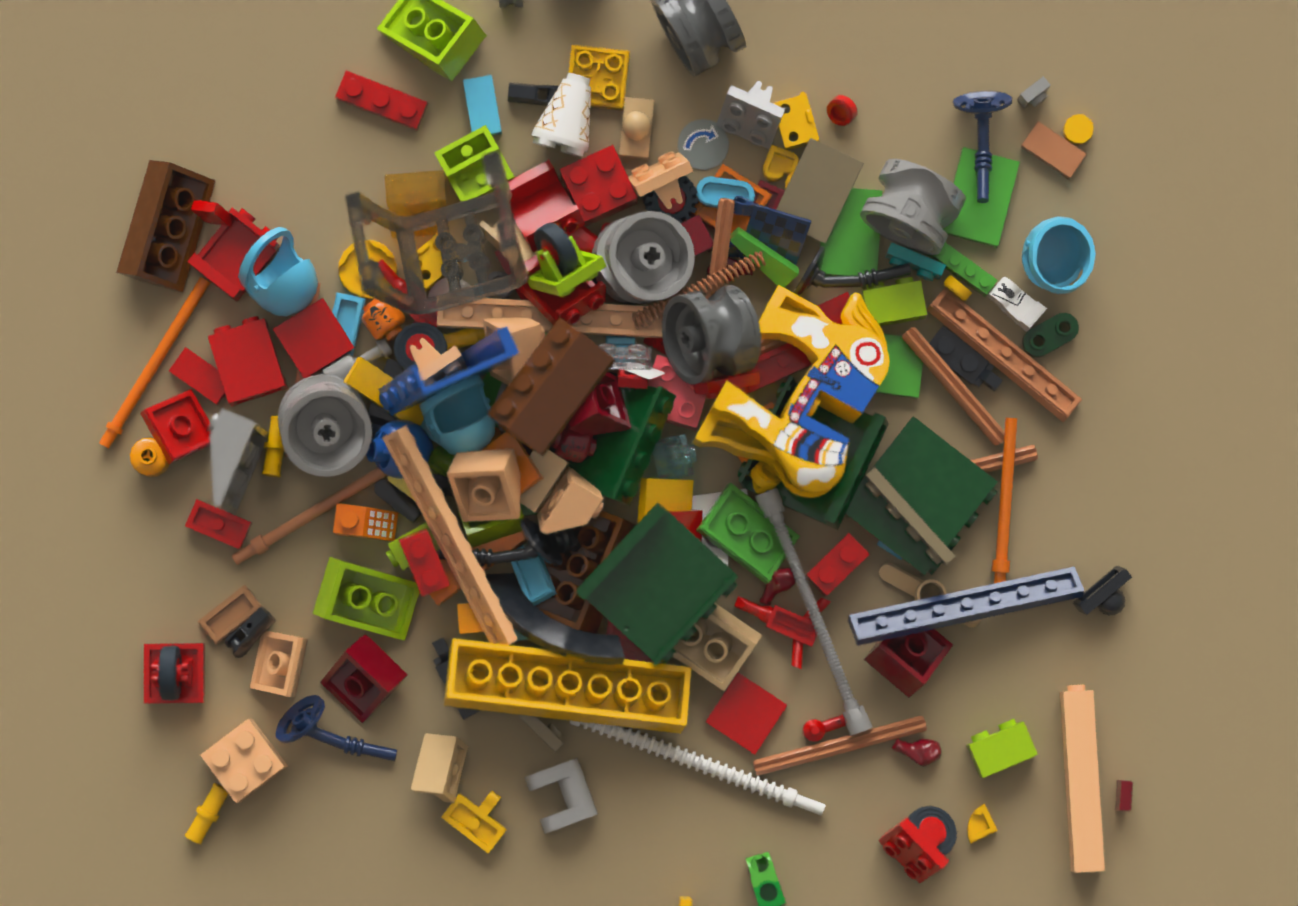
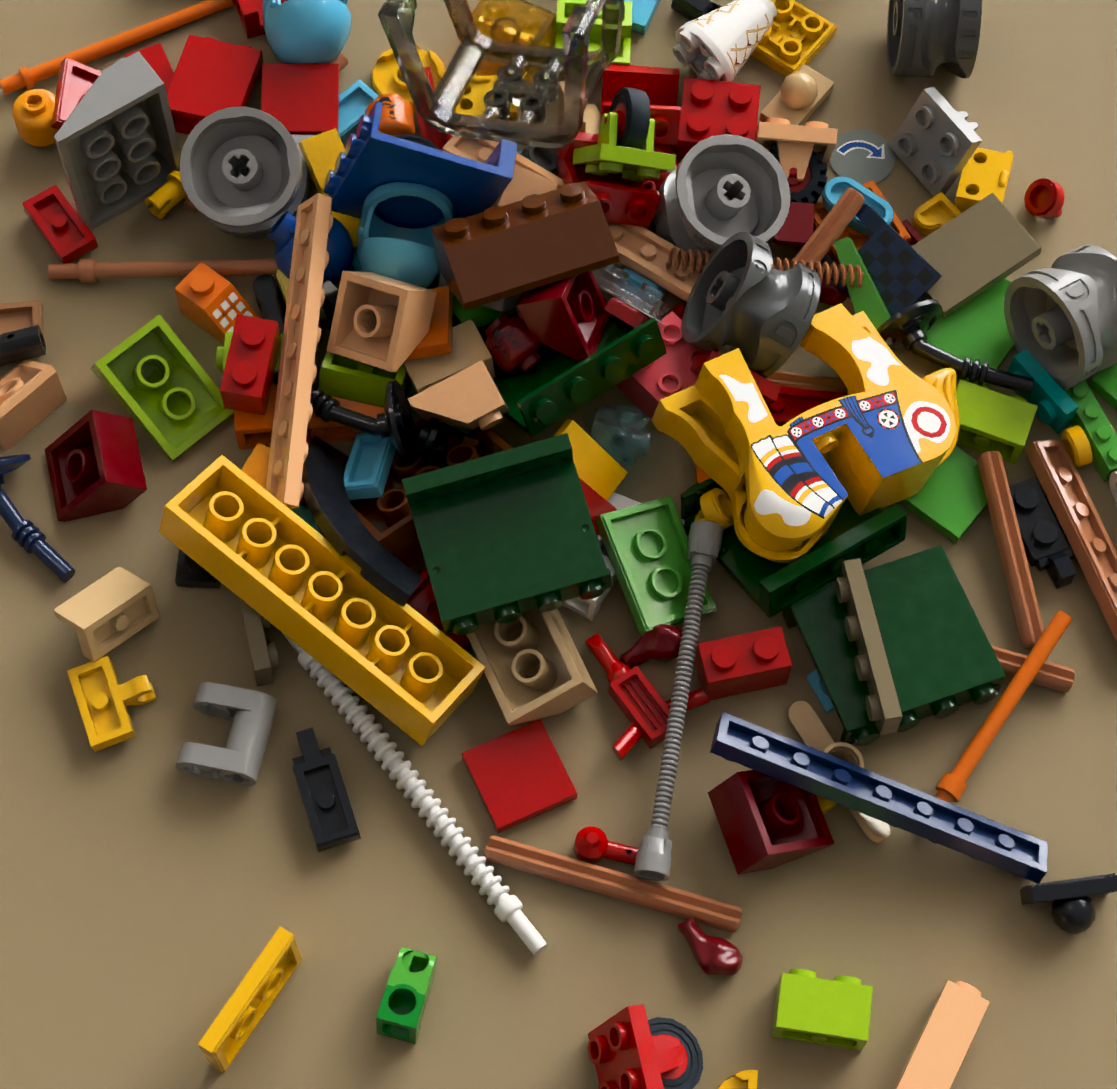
camera: 30 degrees right, 20 degrees down
(641, 796) = (323, 794): none -> black hinge

